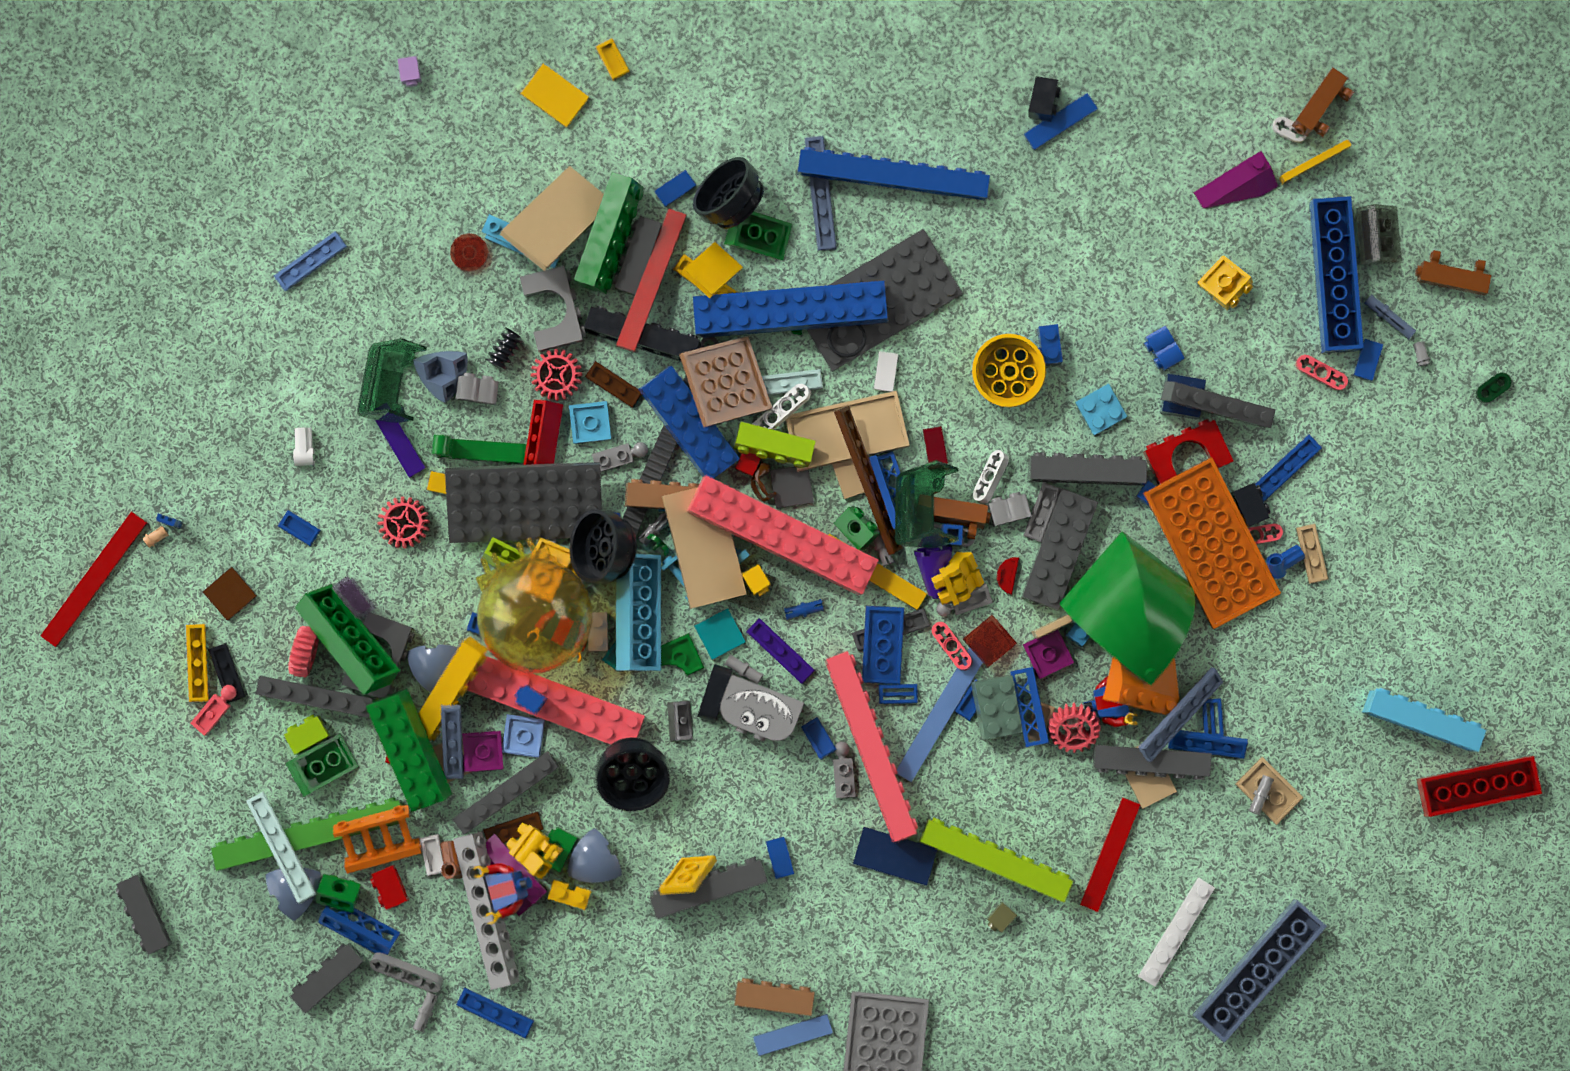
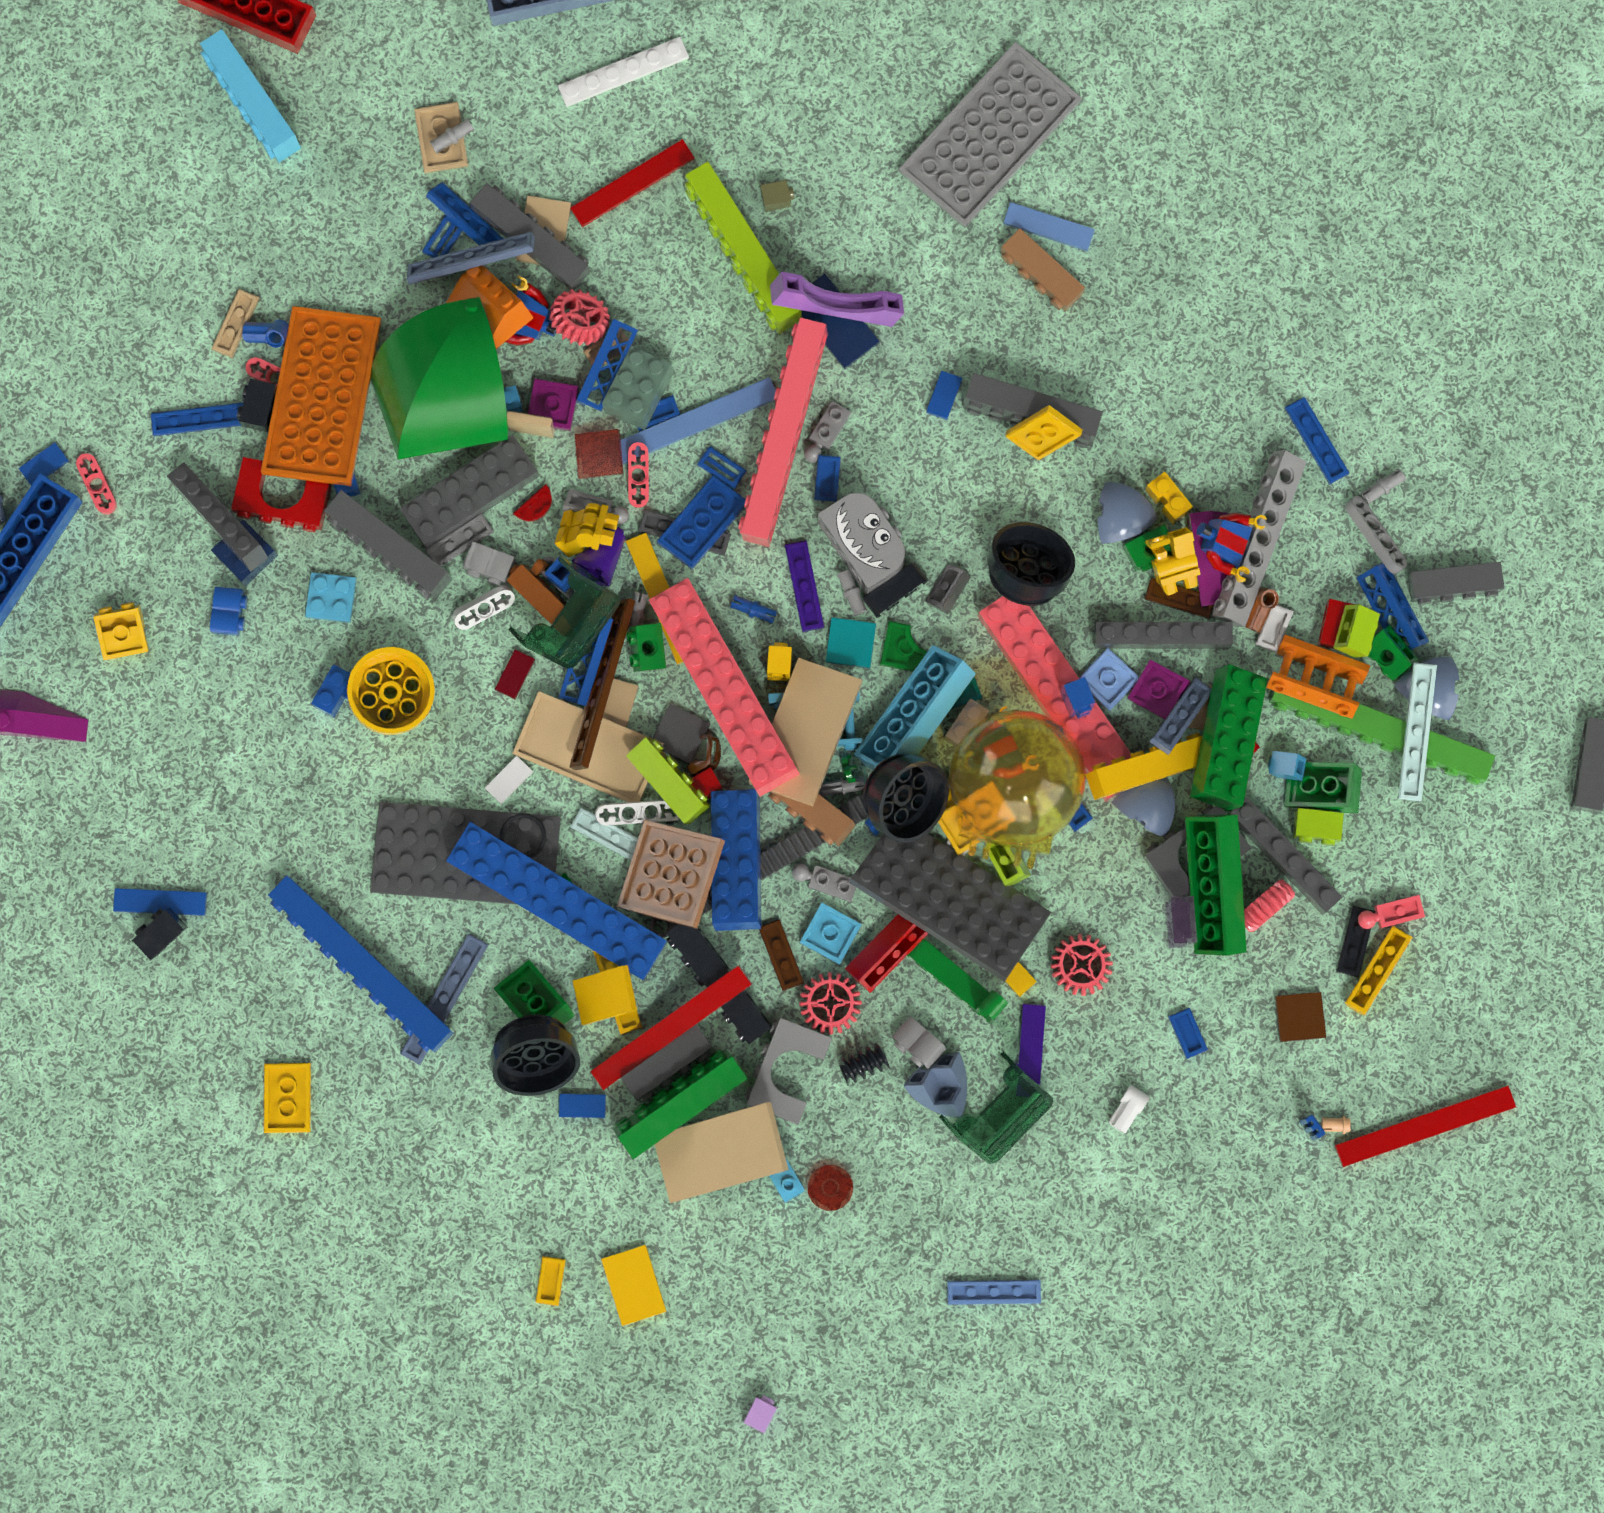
camera: 140 degrees left, 5 degrees down
(356, 761) = (1287, 765): none -> dark azure brick
(371, 889) = (1356, 630): none -> lime brick
(877, 53) = (287, 1097): none -> yellow tile
(921, 852) = (797, 293): none -> medium lavender arch

